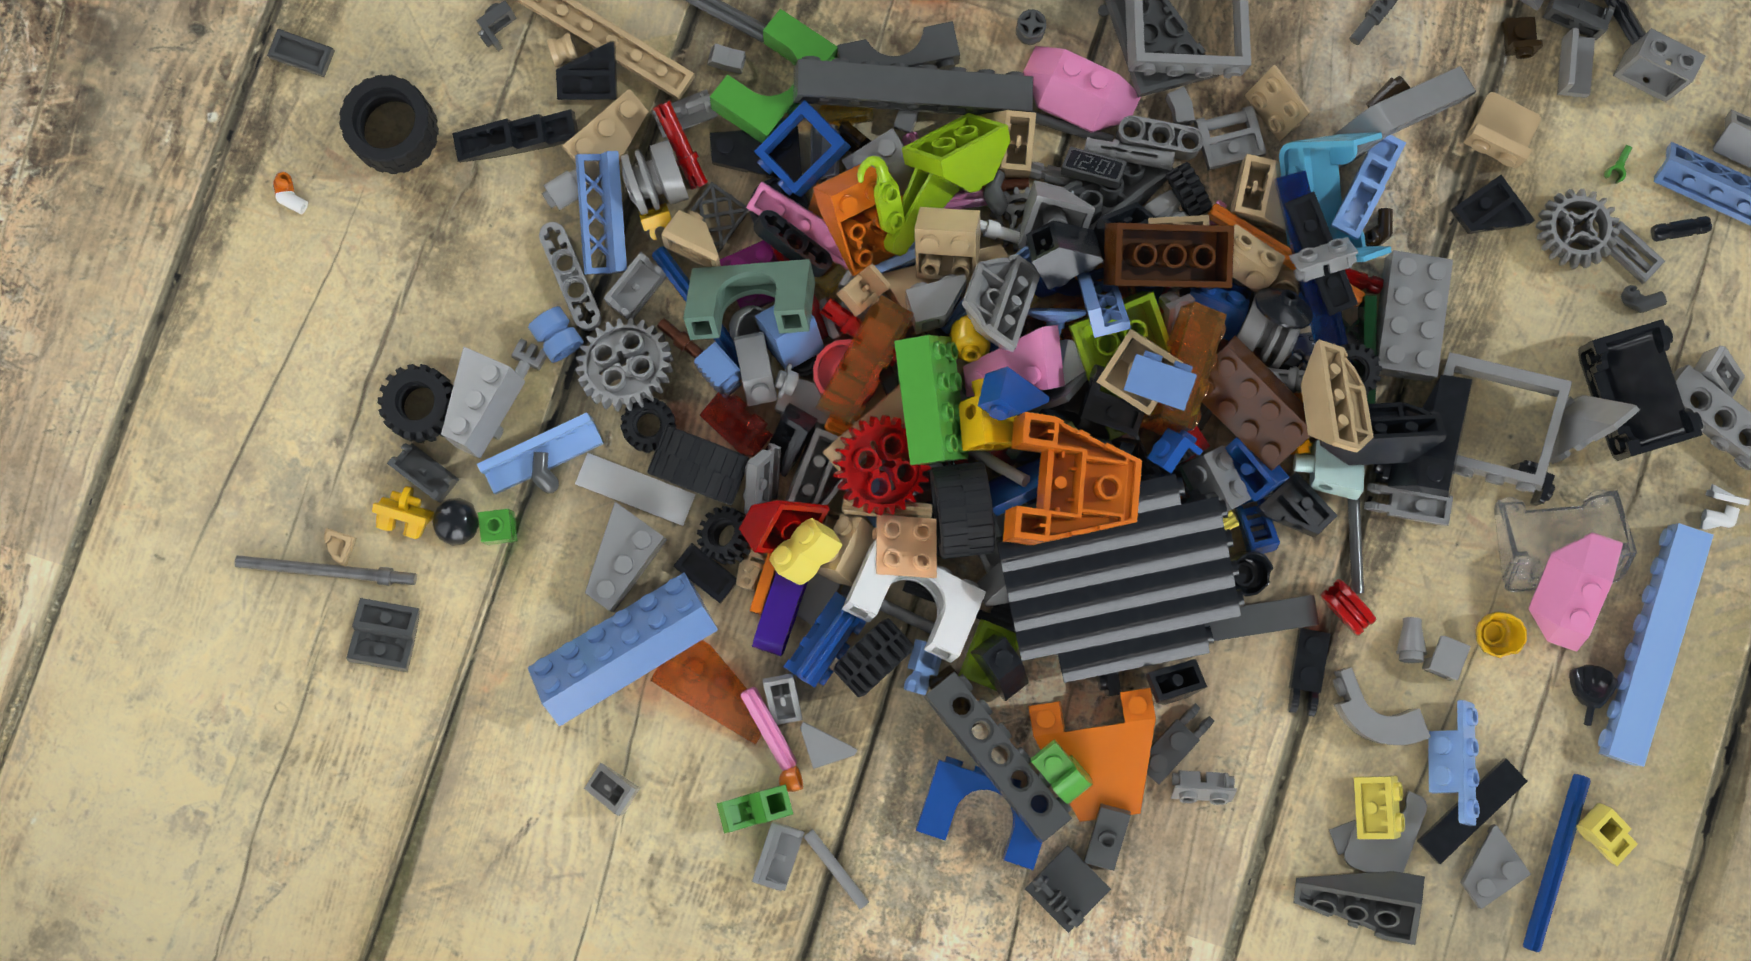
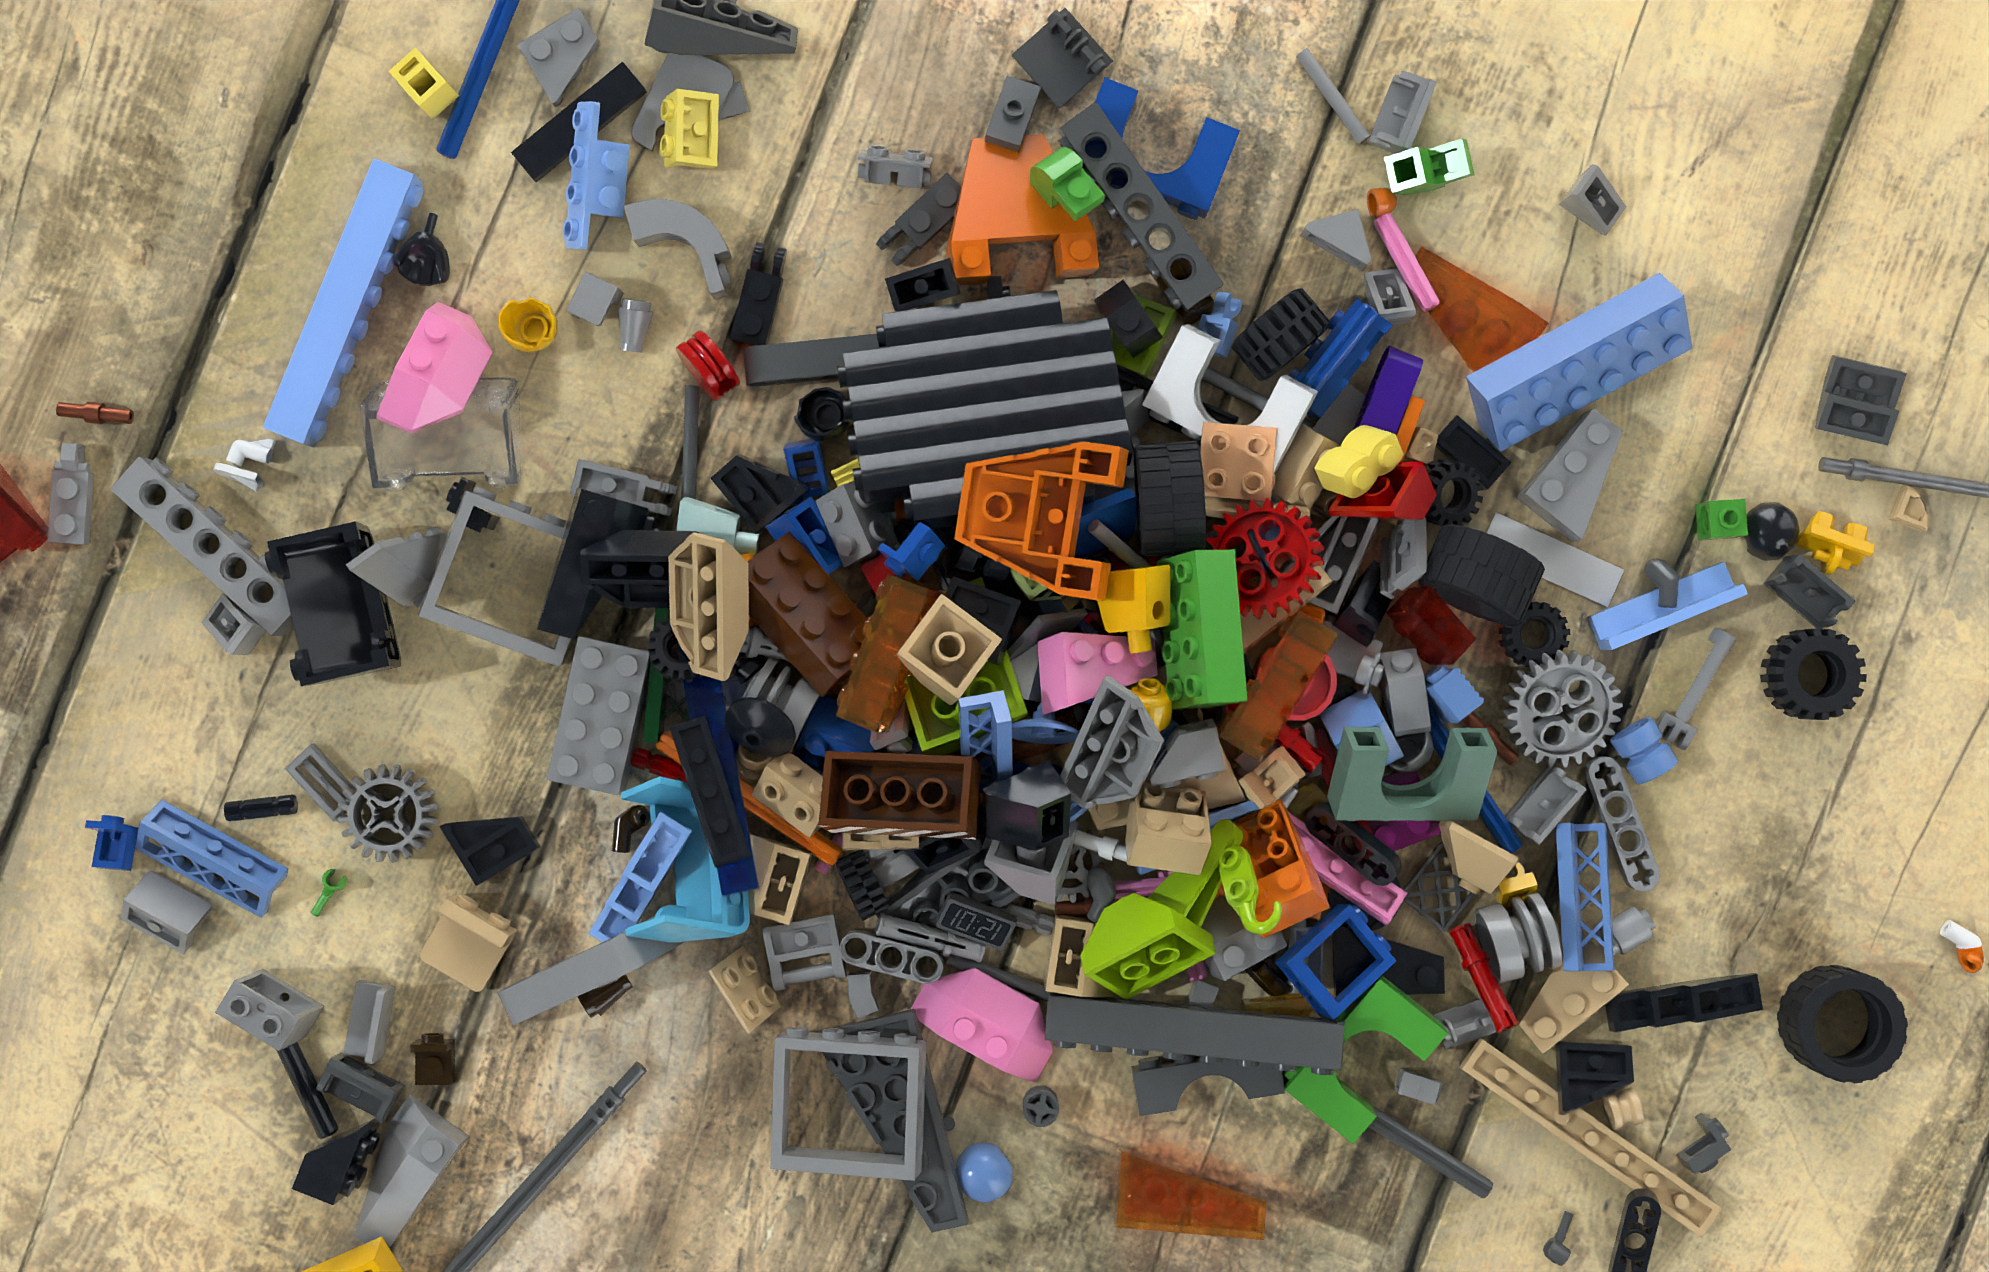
camera: 175 degrees left, 5 degrees up
(301, 53) = (1945, 1124): dark grey tile -> none
(479, 401) = (1743, 669): light grey wedge -> none
(1009, 394) = (1110, 625): blue slope -> none
(1161, 381) = (927, 630): medium blue brick -> none
(1337, 254) = (694, 787): light grey hinge -> none
(1635, 300) = (318, 718): dark grey arm -> none

